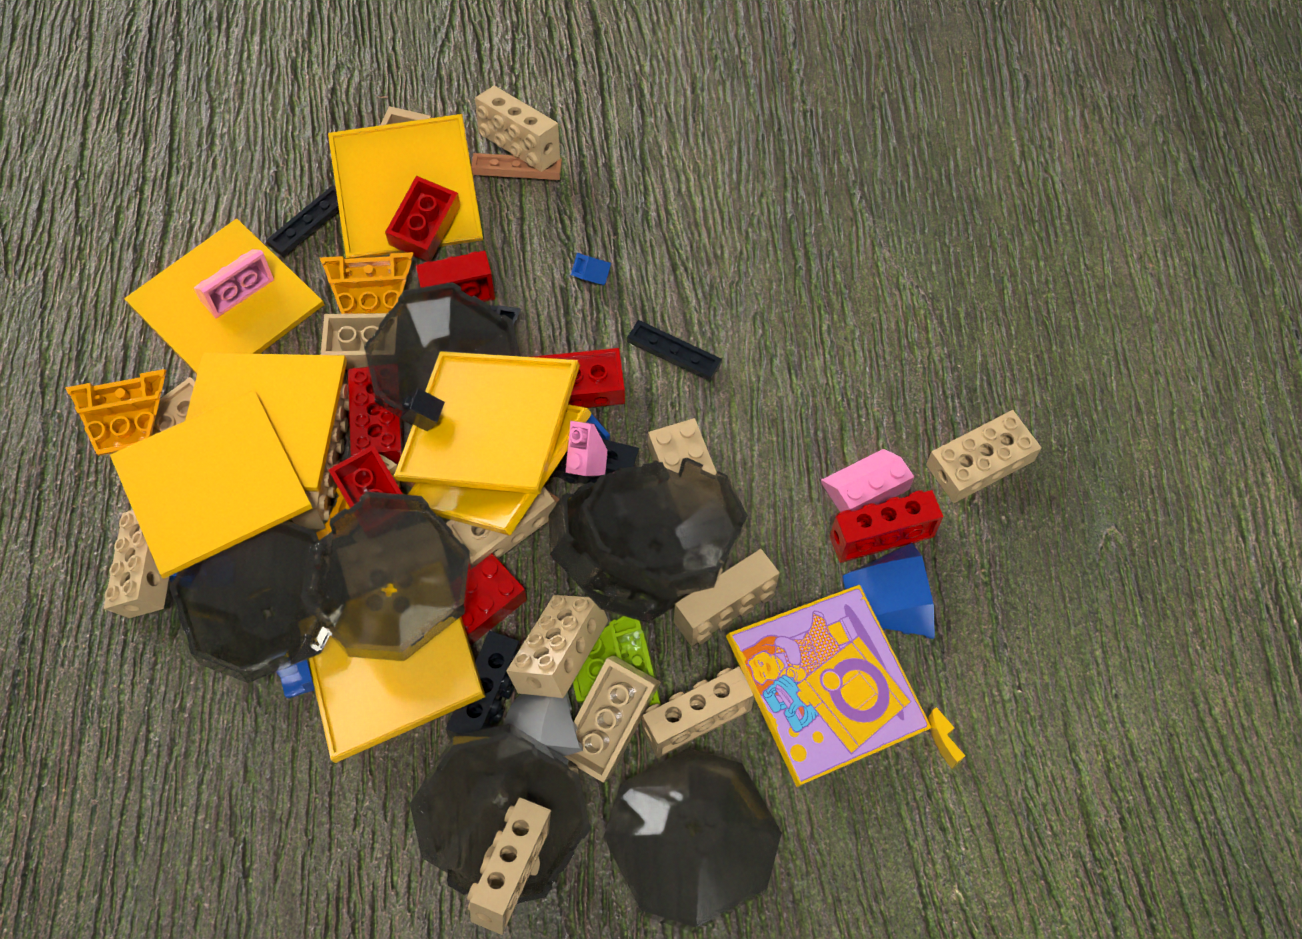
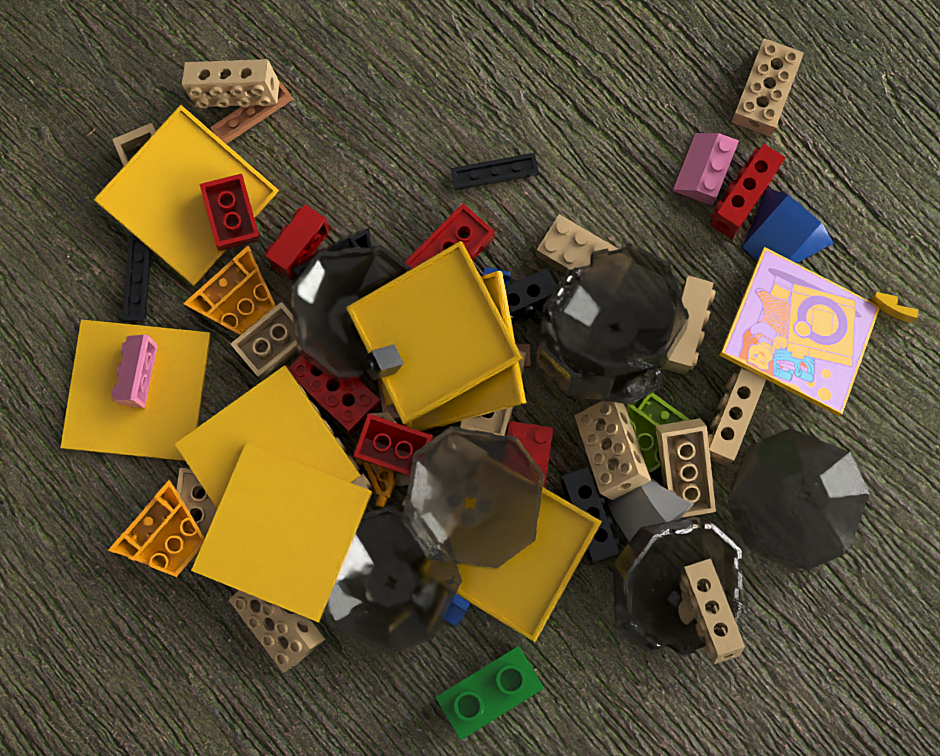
camera: 35 degrees left, 15 degrees up
(241, 760) = (489, 692): none -> green brick
(585, 450) = (522, 303): bright pink slope -> none
(590, 268) = (381, 154): blue panel -> none

